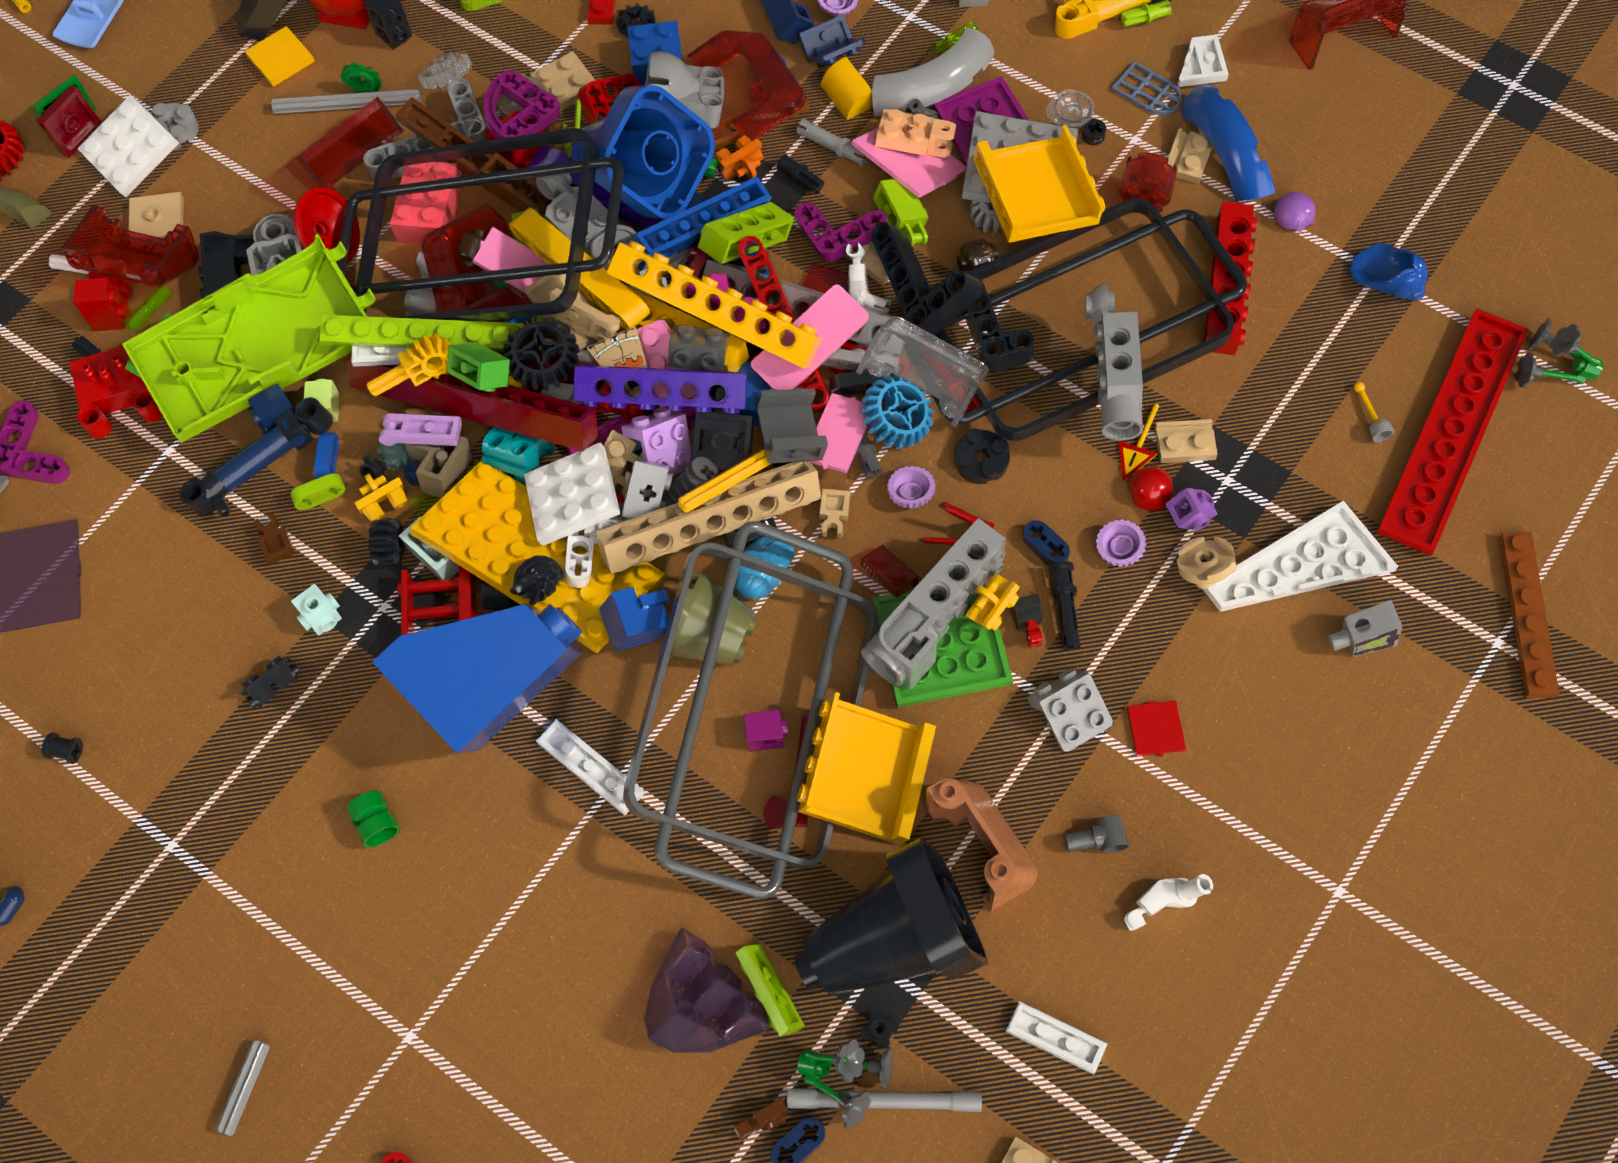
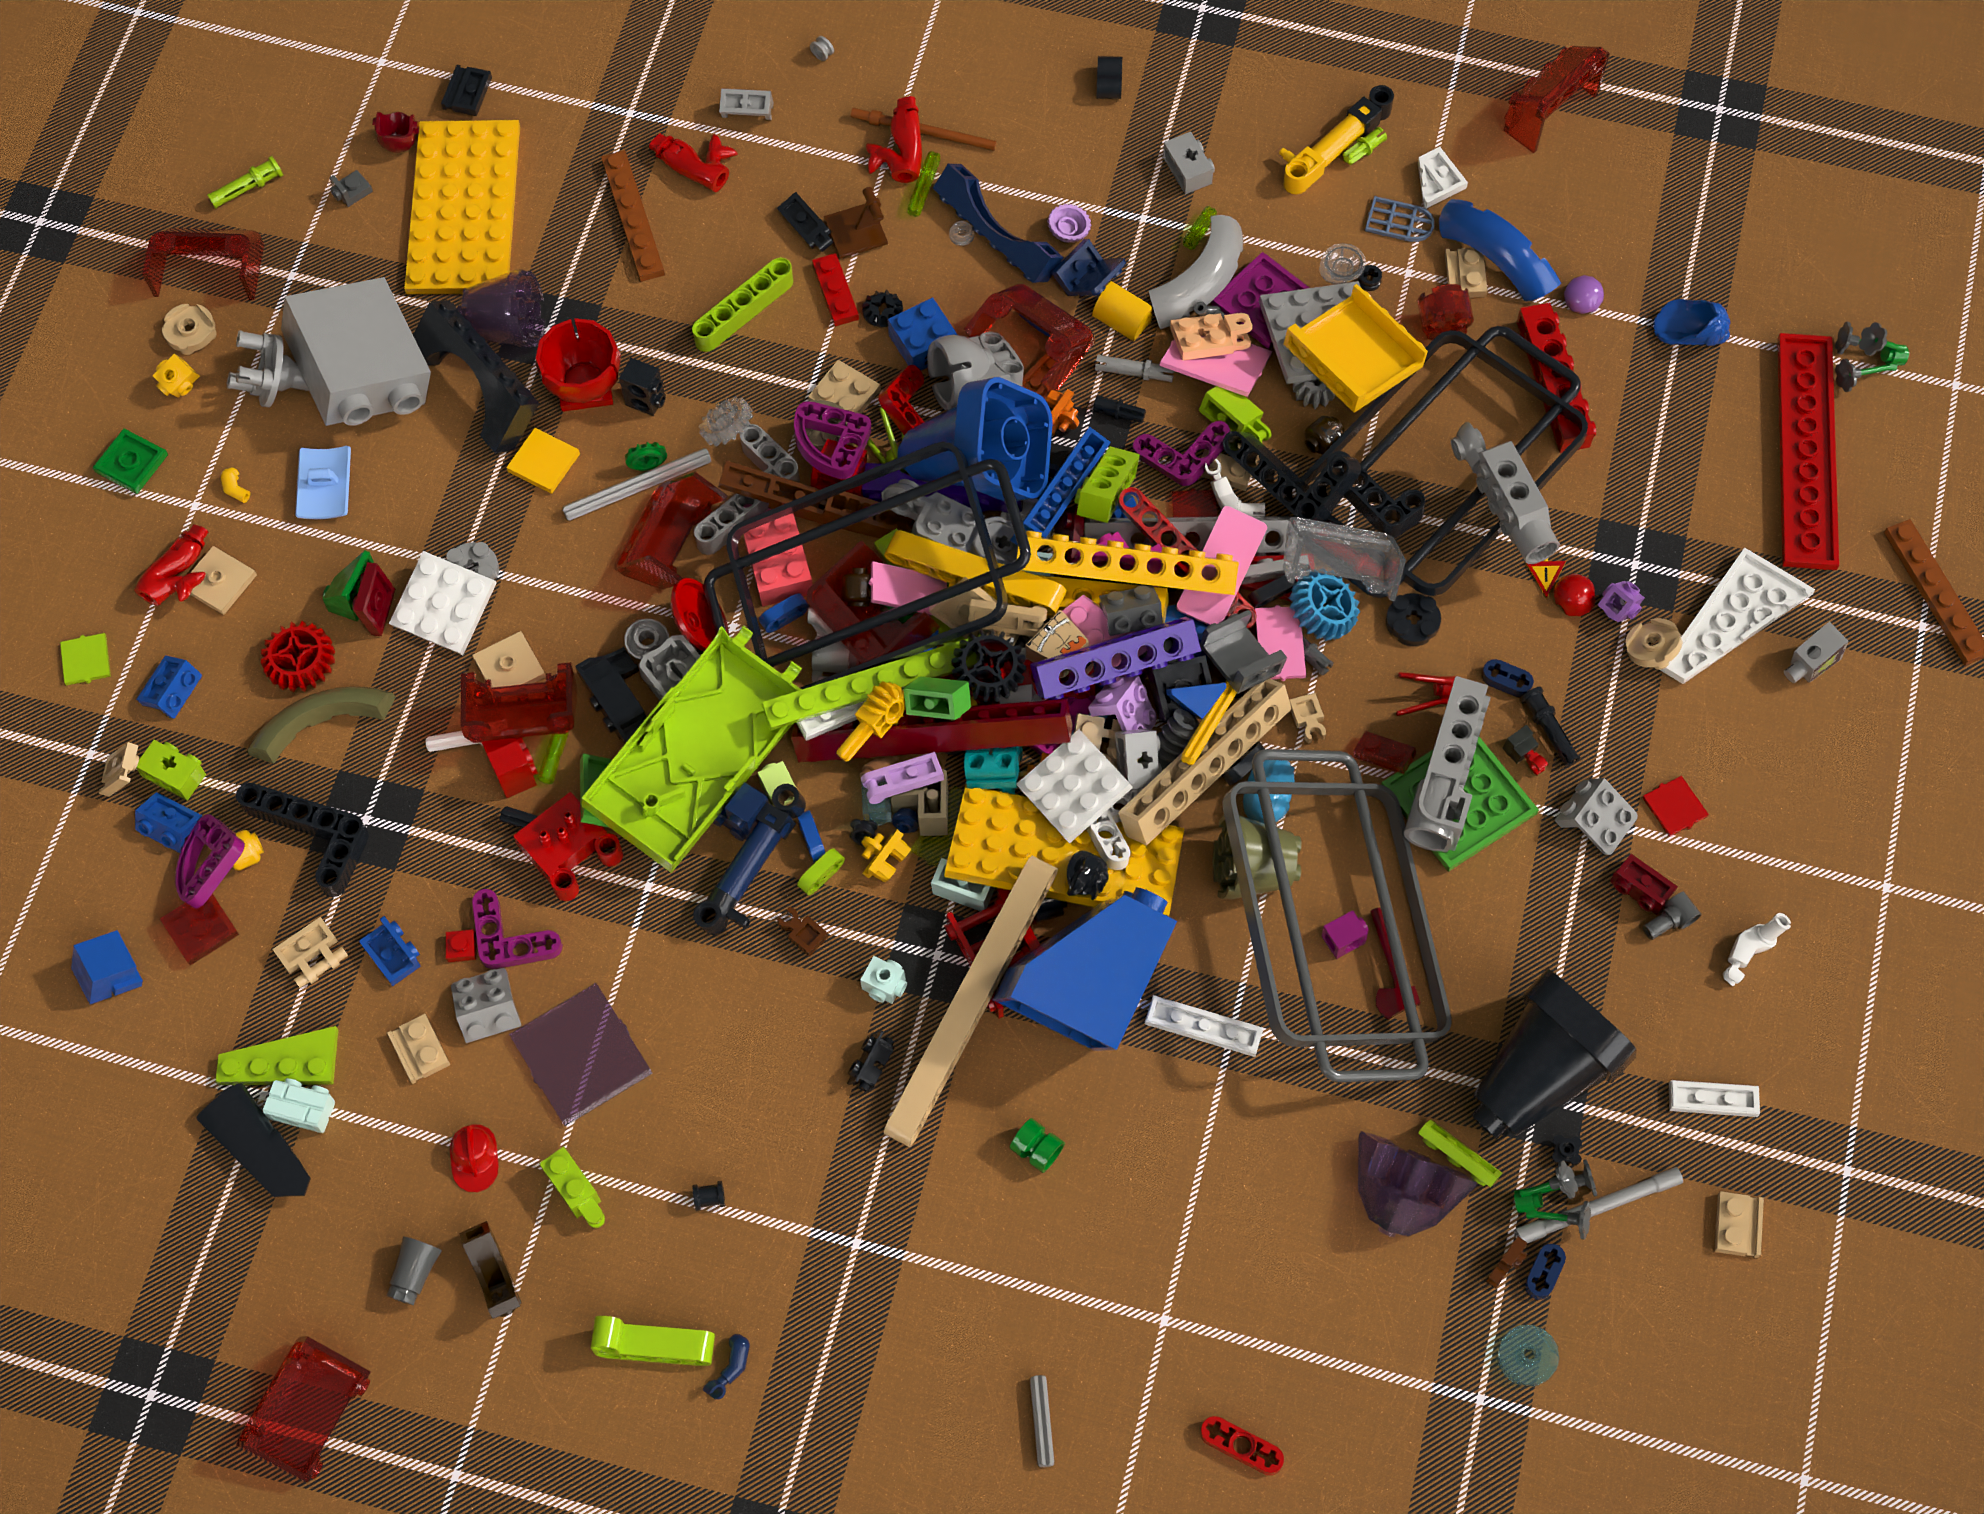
camera: 25 degrees left, 0 degrees up
(358, 673) = (970, 1001): none -> tan beam
(384, 542) = (916, 893): black gear -> none
(402, 252) = (783, 613): none -> blue beam
(634, 620) = (1192, 877): blue plate -> none
(725, 453) = (1197, 699): none -> blue slope
(866, 771) = (1454, 935): yellow panel -> none
(911, 487) = (1367, 669): lavender hat -> none
(992, 601) = (1494, 746): yellow hips -> none
(1010, 866) = (1552, 929): nougat windscreen -> none
(1083, 792) = (1643, 884): none -> dark red bracket
(1121, 543) = (1573, 653): lavender hat -> none
(1186, 441) = (1585, 541): tan plate -> none
(1380, 428) = (1745, 471): light grey hinge -> none

